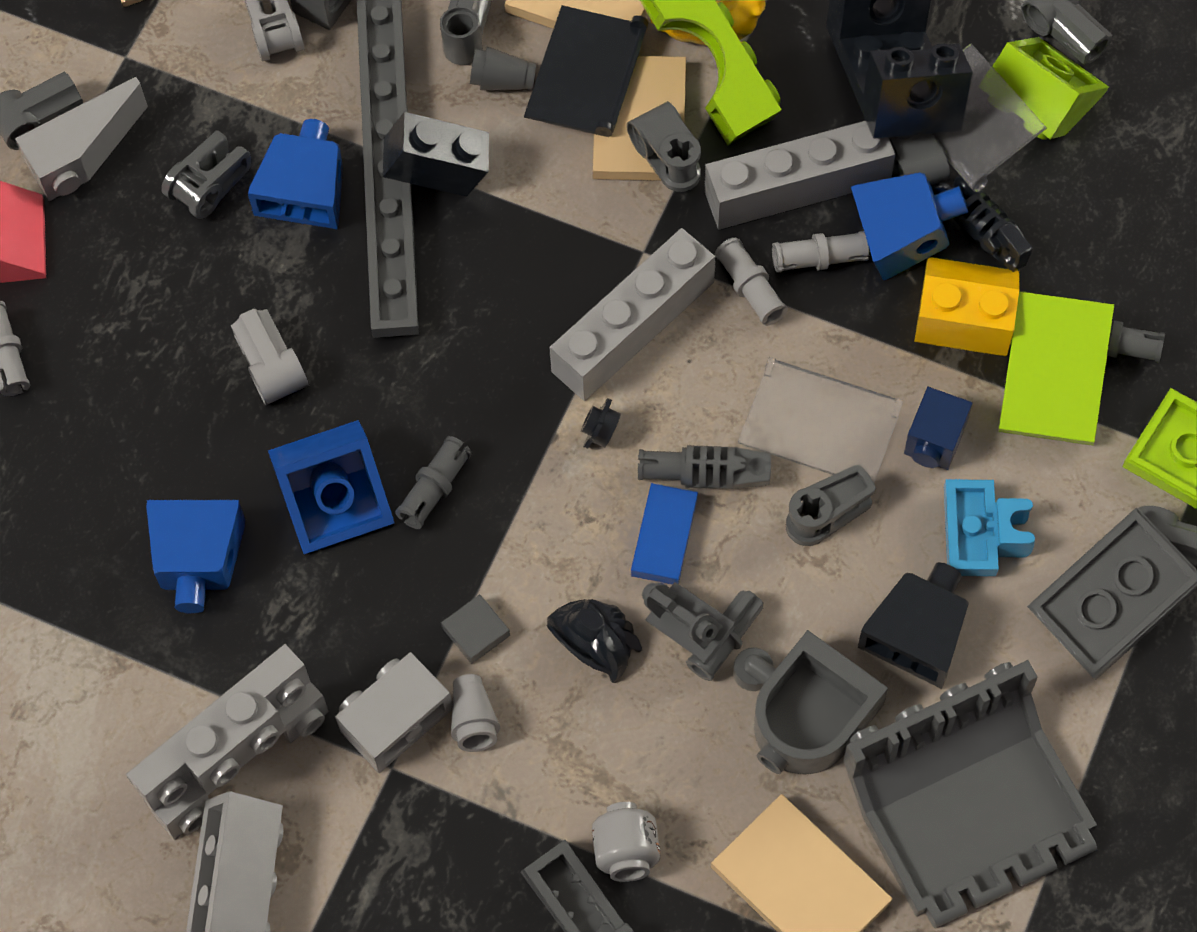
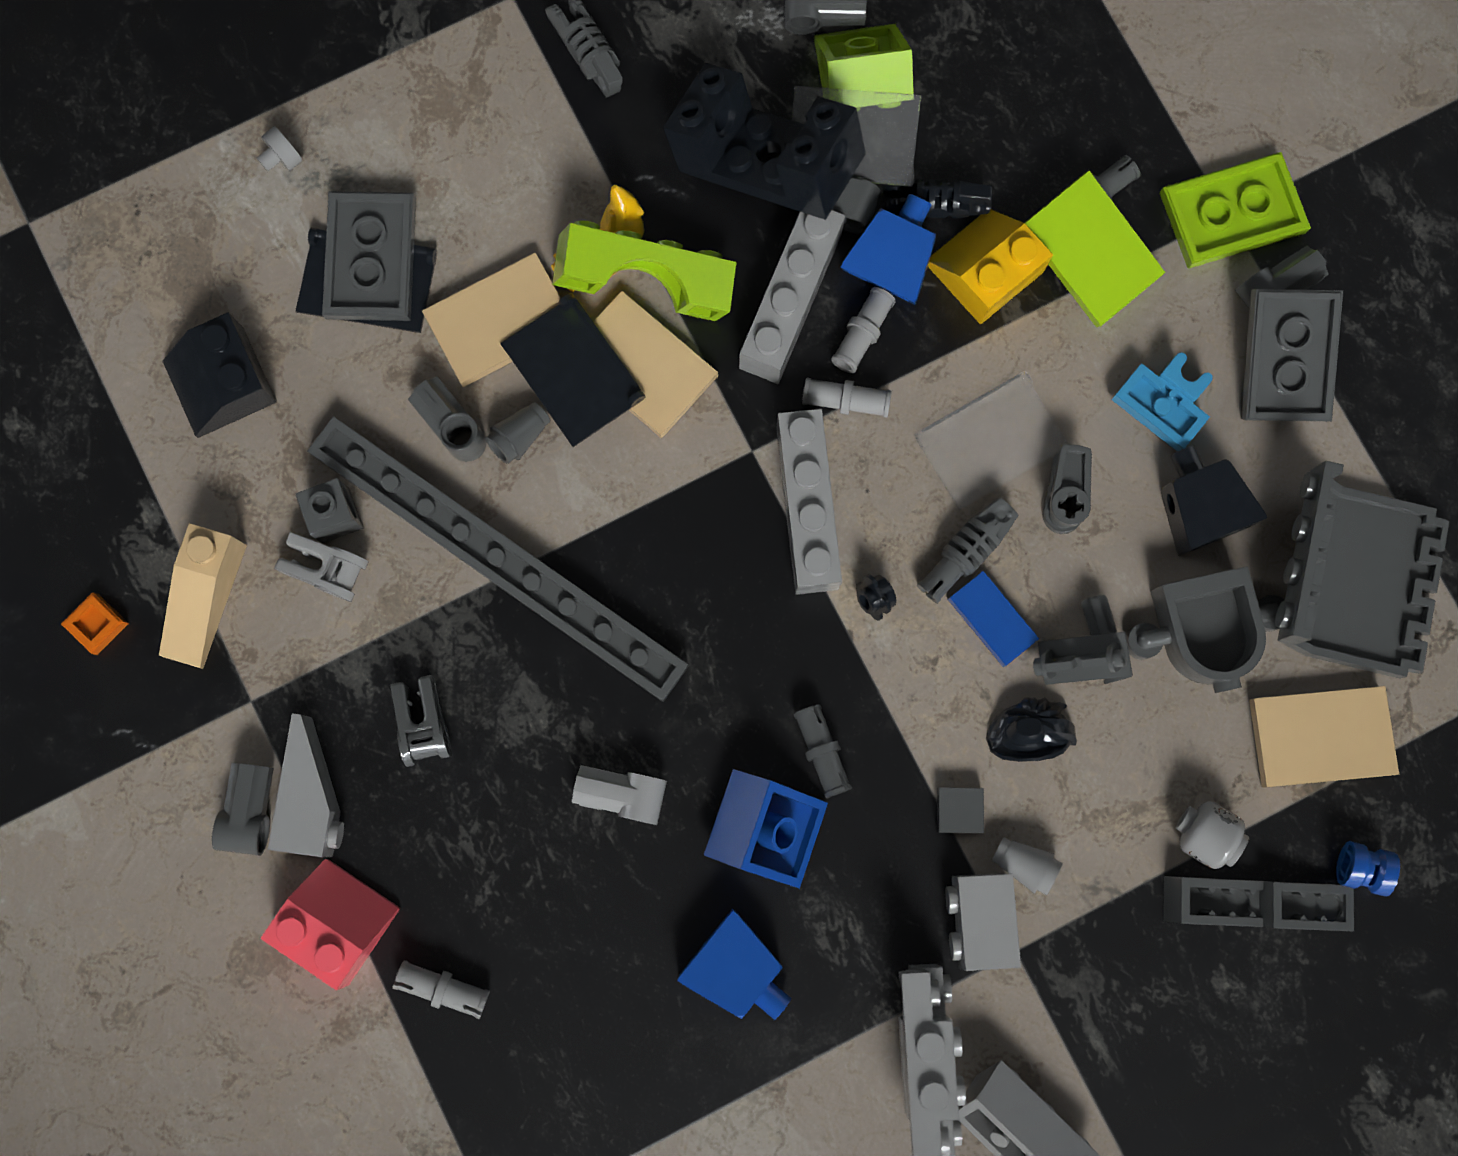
camera: 55 degrees left, 15 degrees up
(300, 178) = (484, 651): blue torso -> none
(435, 154) = (559, 539): black brick -> none
(667, 146) = (688, 365): dark grey piece -> none
(937, 429) = (1071, 368): dark blue brick -> none

